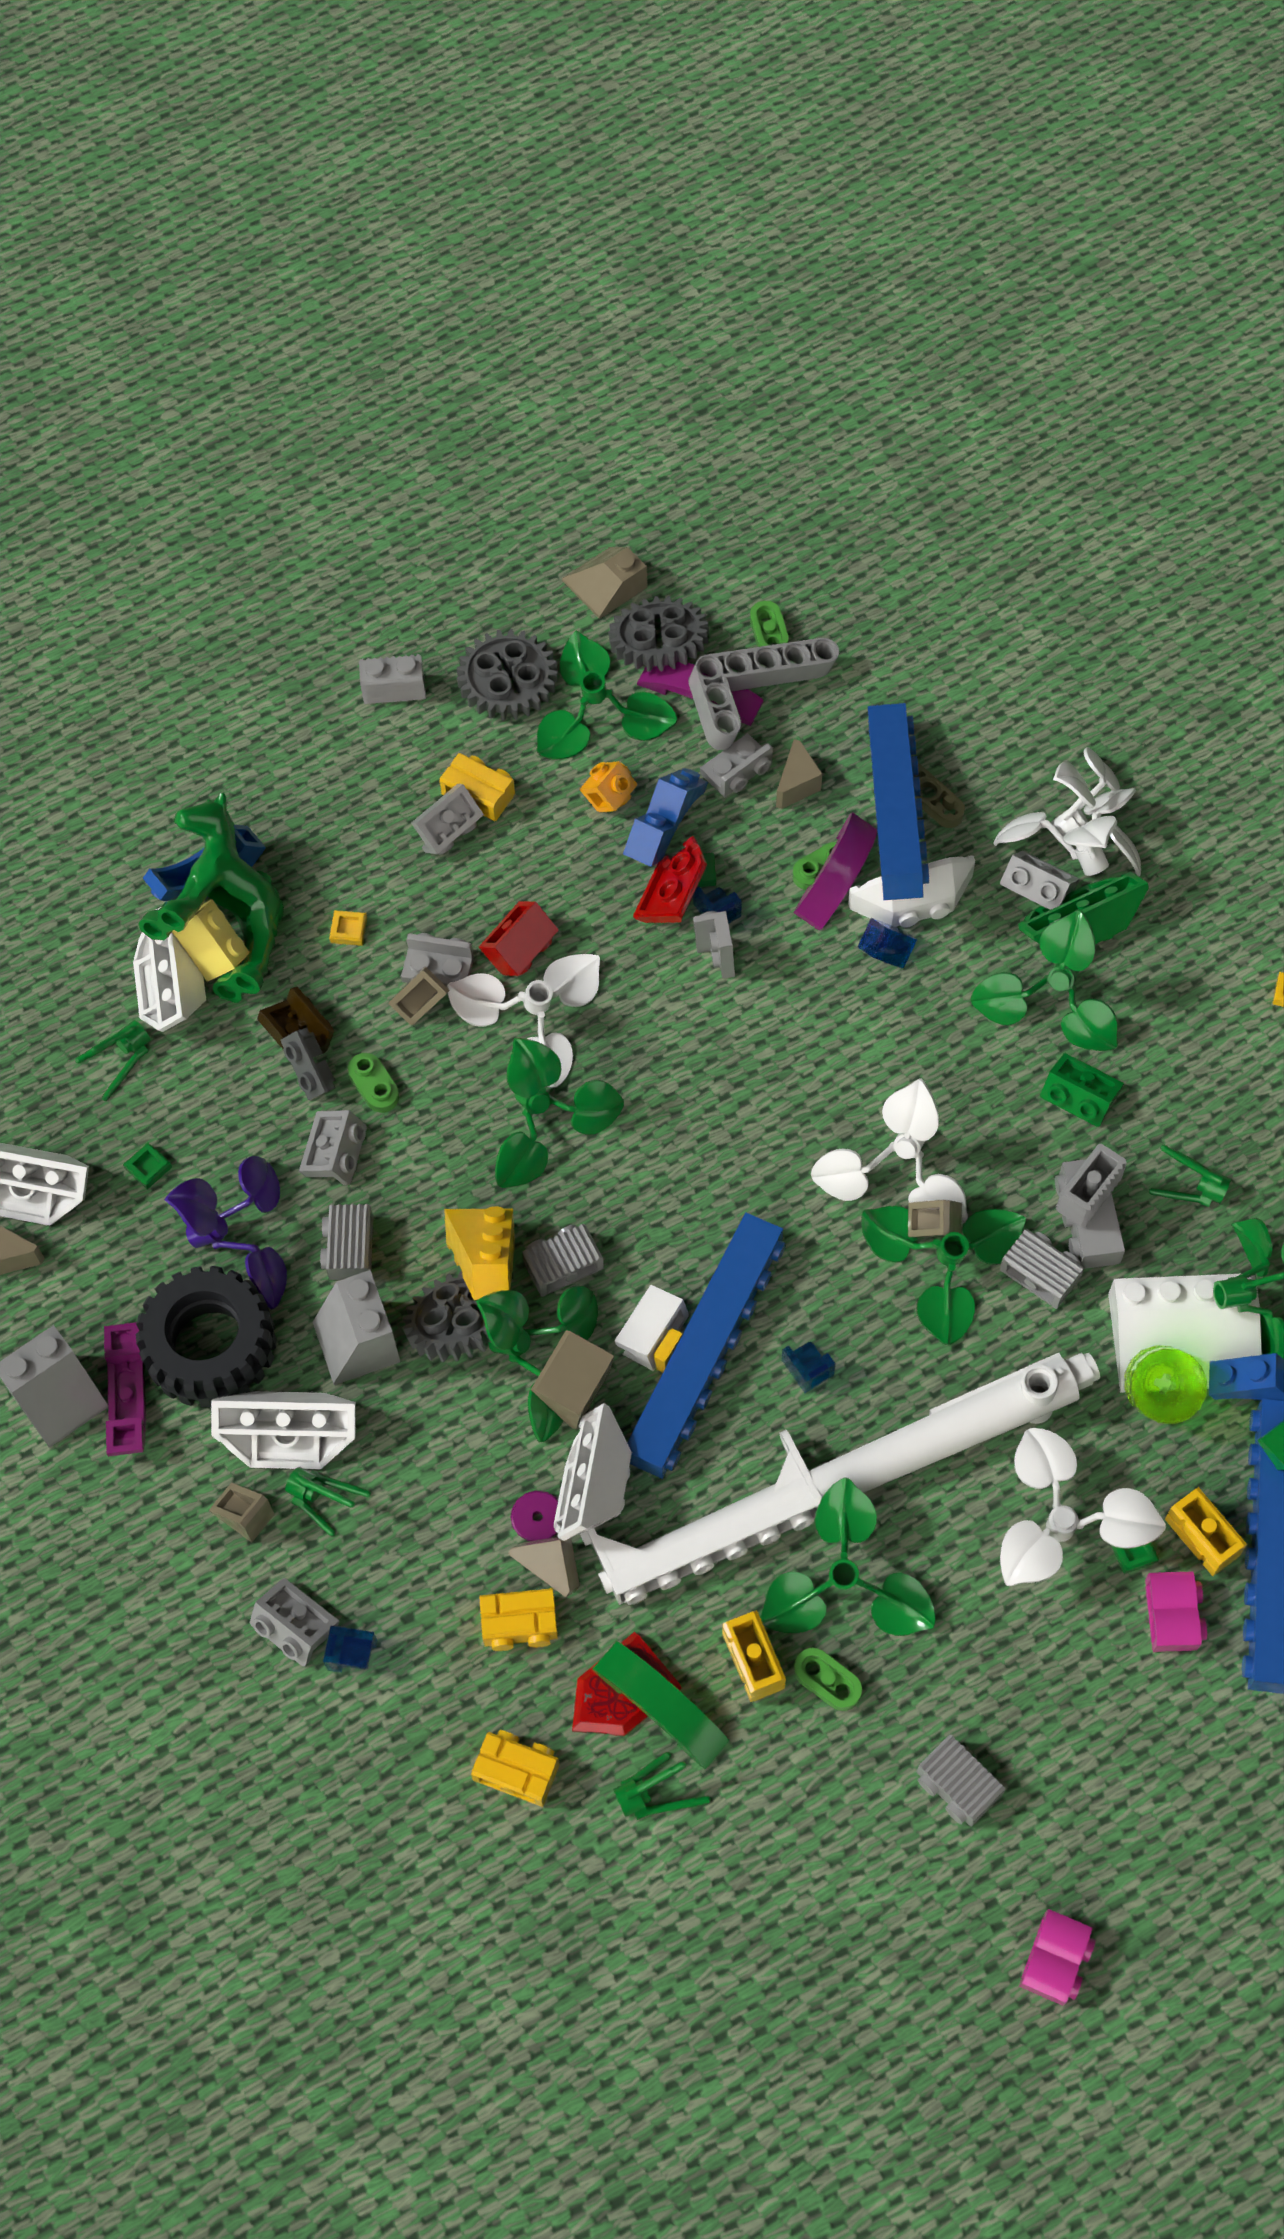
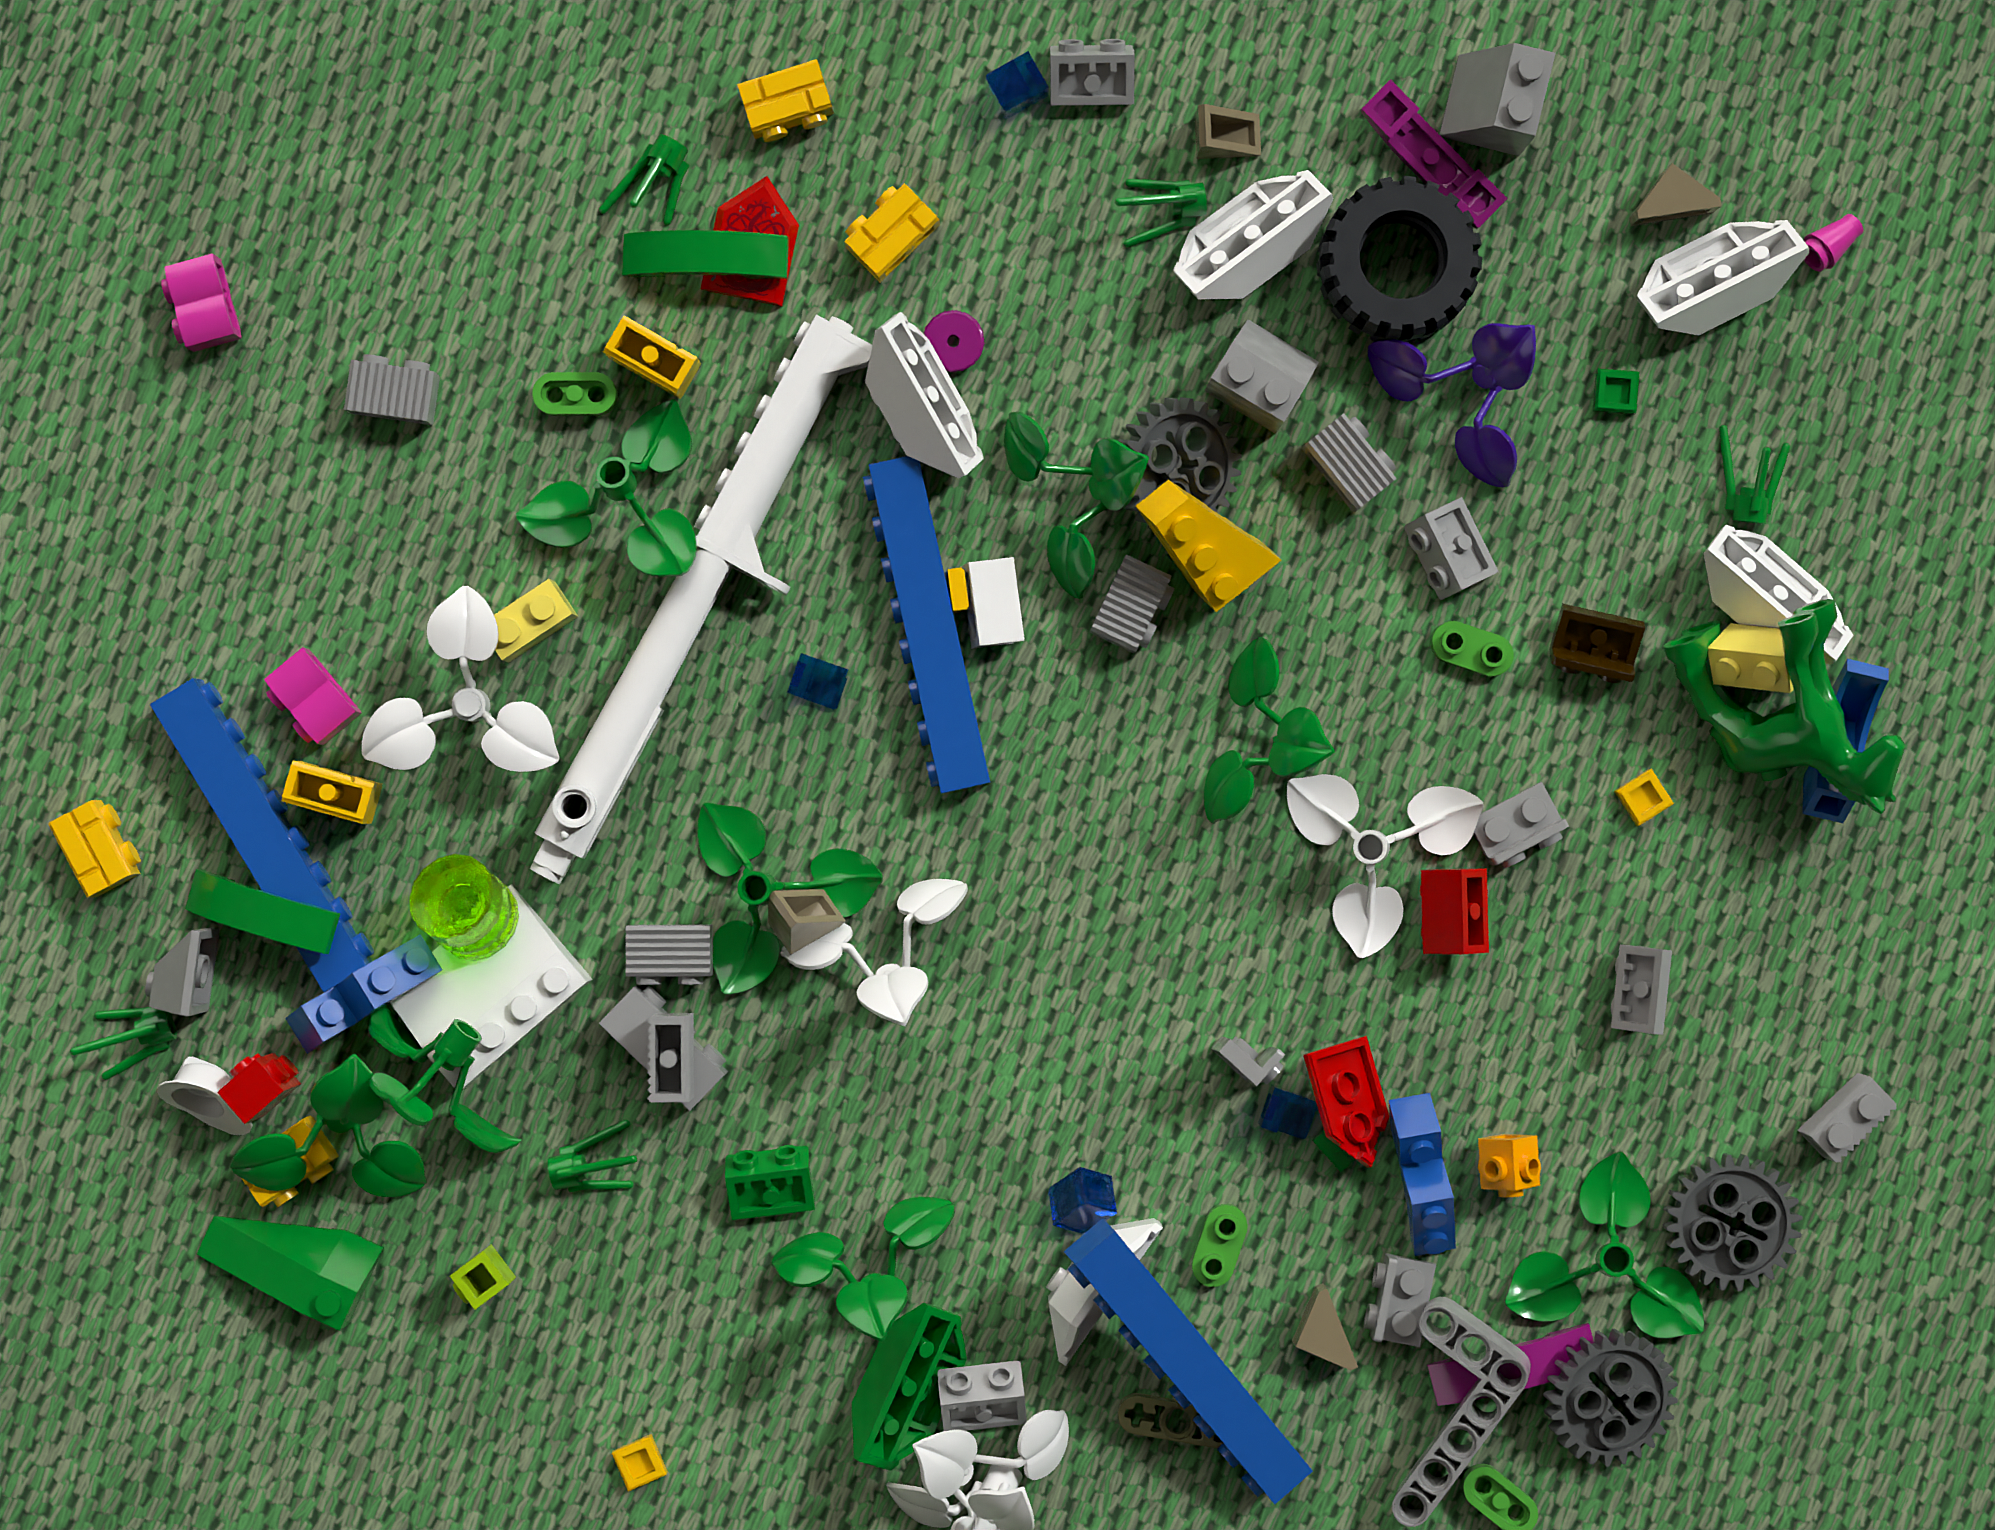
camera: 135 degrees right, 25 degrees up
(312, 1077) = (1565, 614): dark grey hinge -> none
(418, 996) = (1501, 774): dark tan slope -> none
(488, 788) = (1648, 1060): yellow brick -> none
(550, 1561) = (915, 296): slope -> none
(573, 1377) = (1019, 485): dark tan slope -> none
(608, 580) = (1727, 1429): dark tan slope -> none
(837, 872) = (1193, 1251): magenta slope -> none
(972, 1545) = (532, 619): none -> light yellow brick

